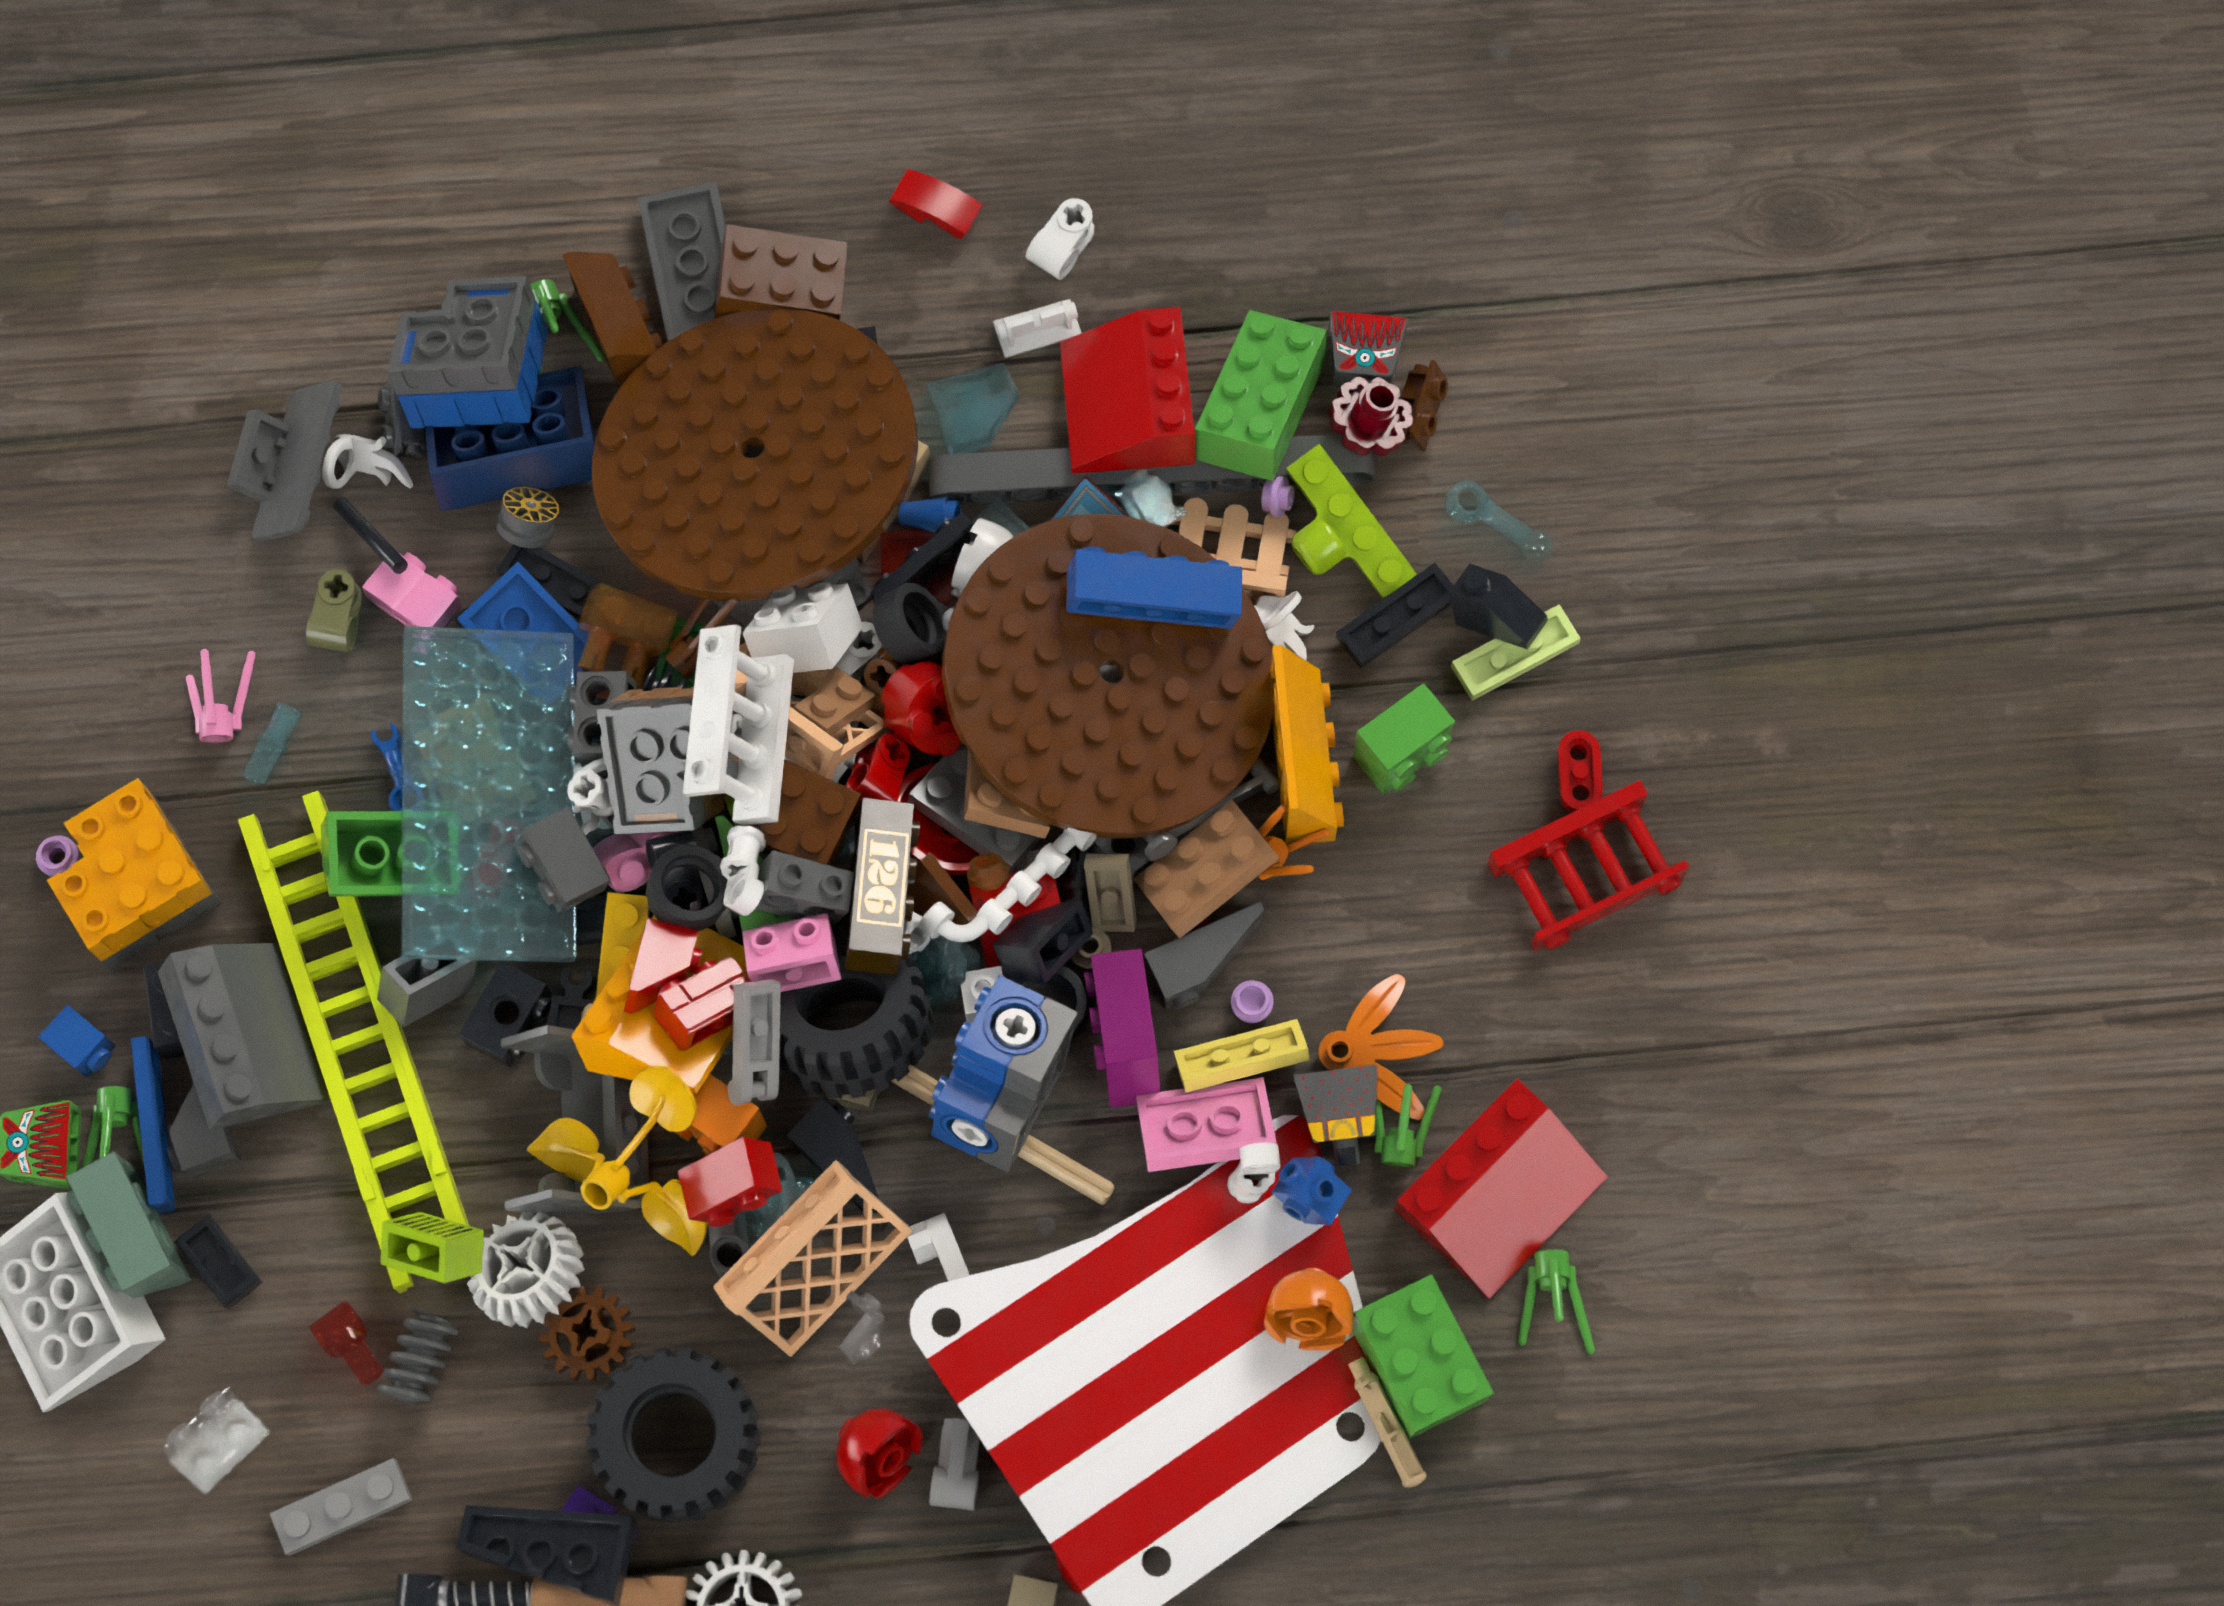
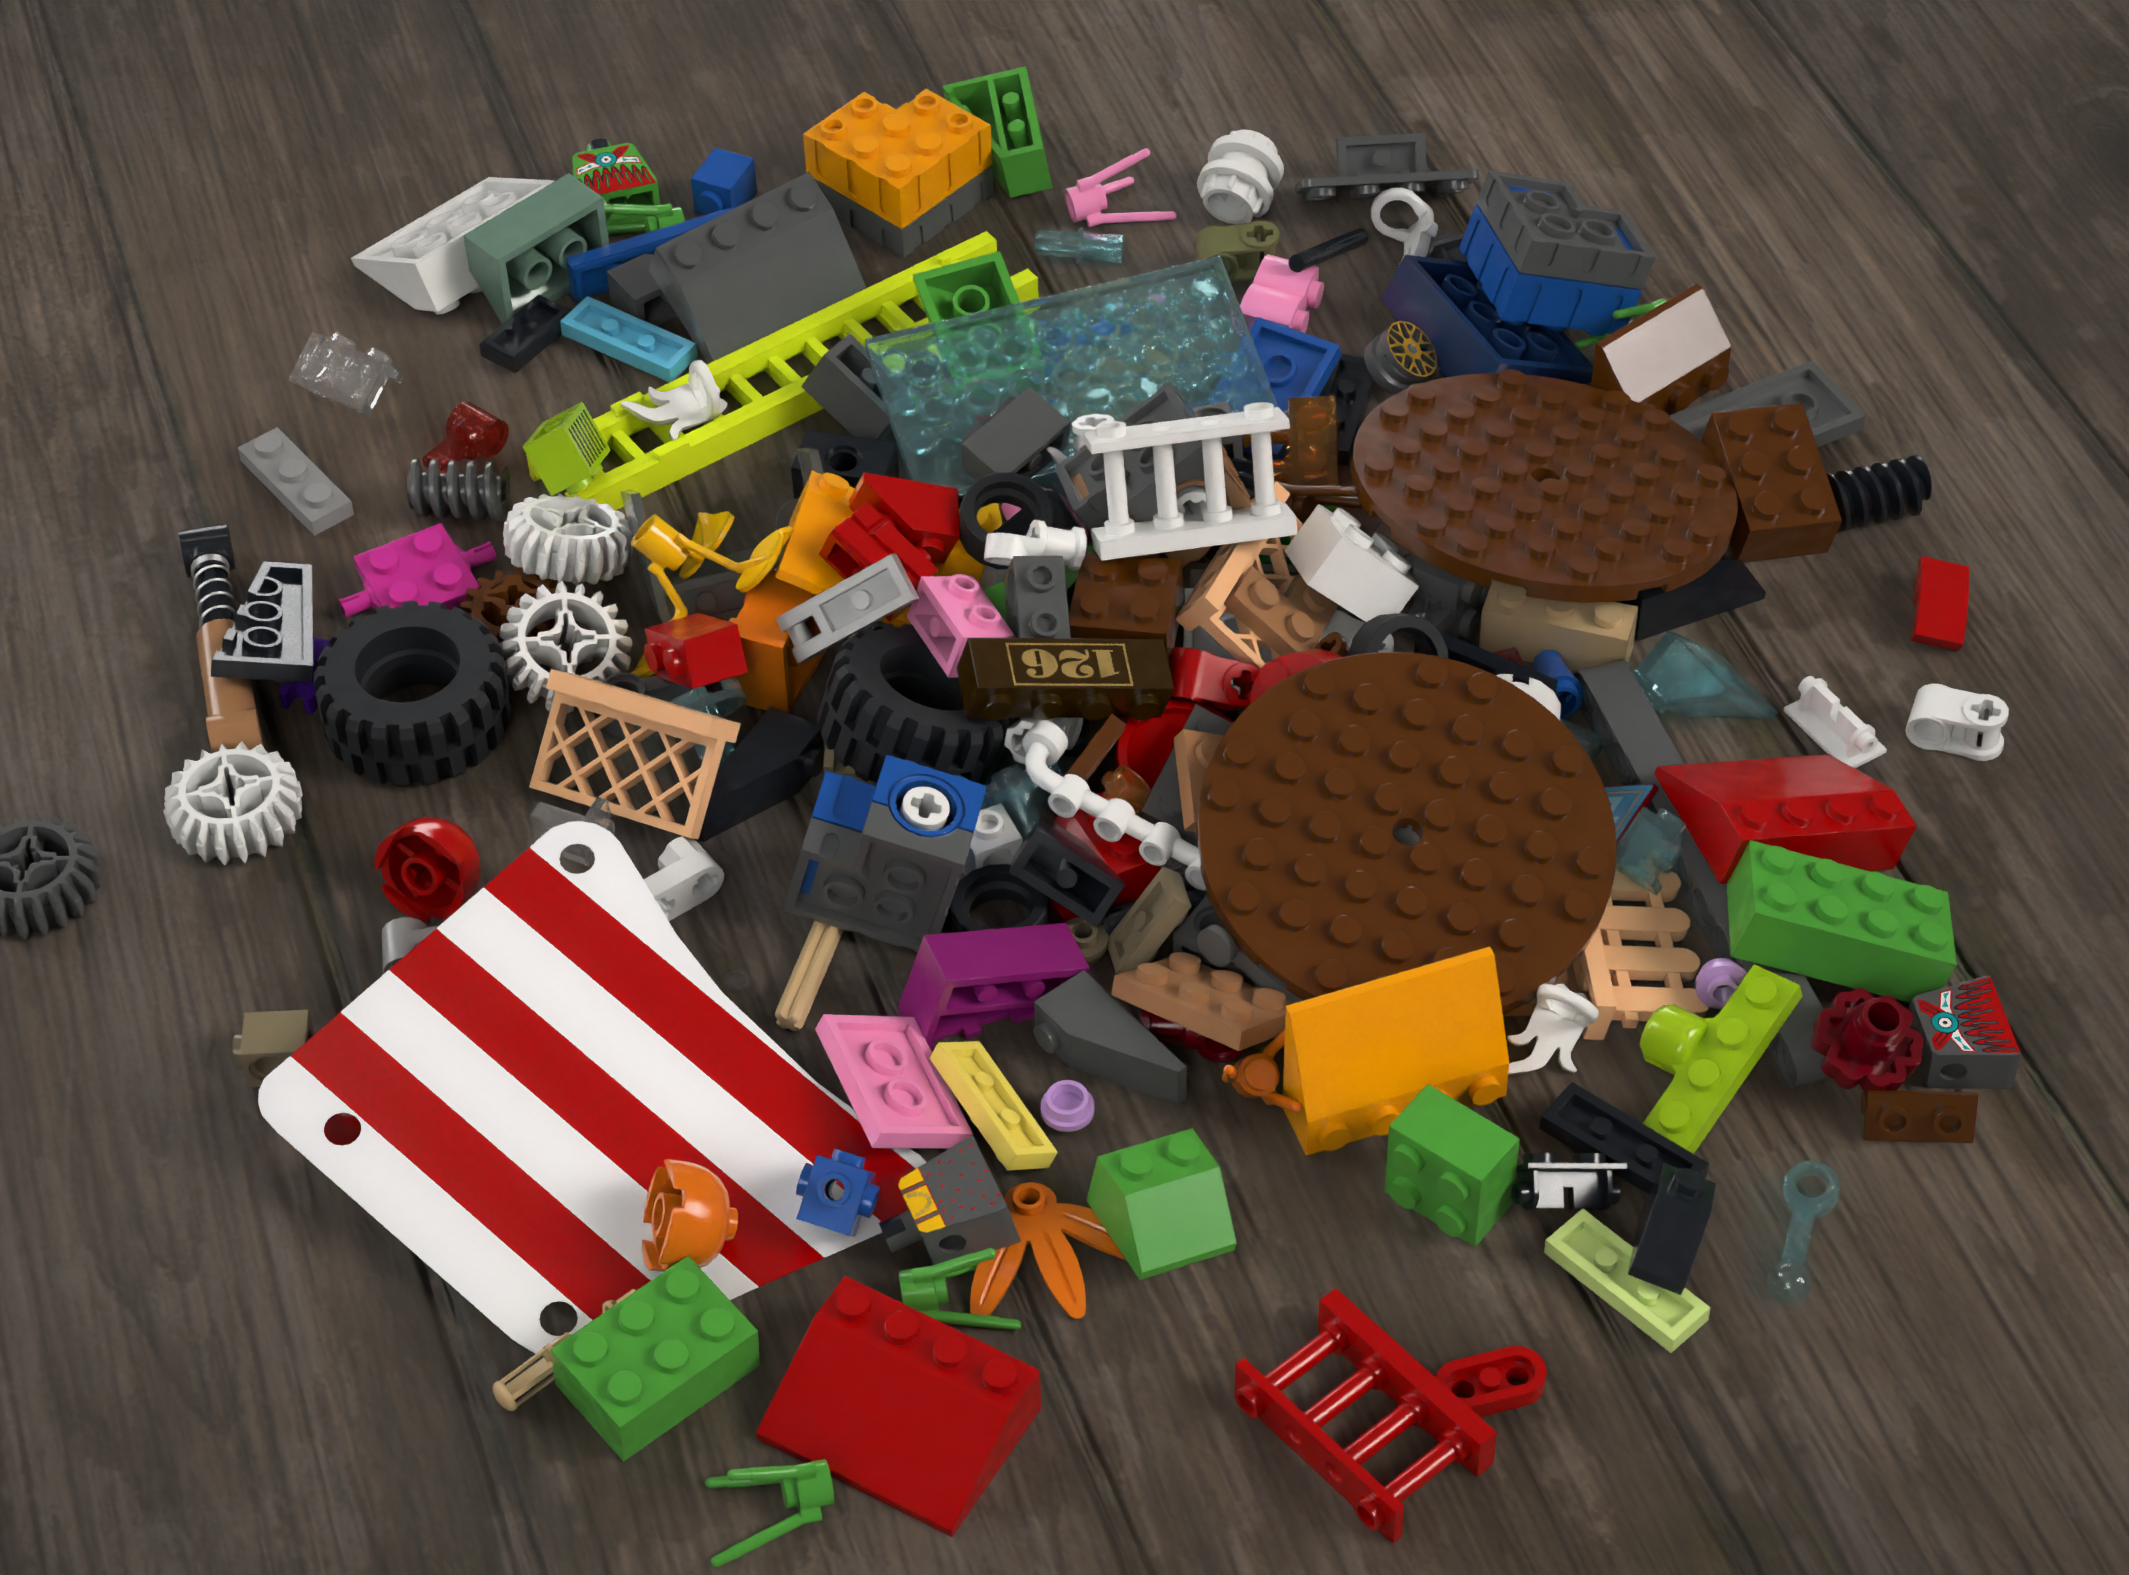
camera: 75 degrees right, 25 degrees down
(88, 766) = (1016, 136): none -> bright green wedge
(244, 581) = (1240, 176): none -> white piece
(259, 1170) = (629, 339): none -> medium azure plate
(385, 1130) = (685, 405): none -> white piece
(509, 1413) = (416, 569): none -> dark pink plate
(693, 1295) = (525, 653): none -> white gear
(807, 198) = (1880, 489): none -> black piece
(1154, 588) = (1519, 828): blue brick -> none
(1259, 1161) = (842, 1112): white connector -> none
(1375, 954) = (1163, 1203): none -> bright green slope
(1422, 654) = (1587, 1181): none -> black hinge

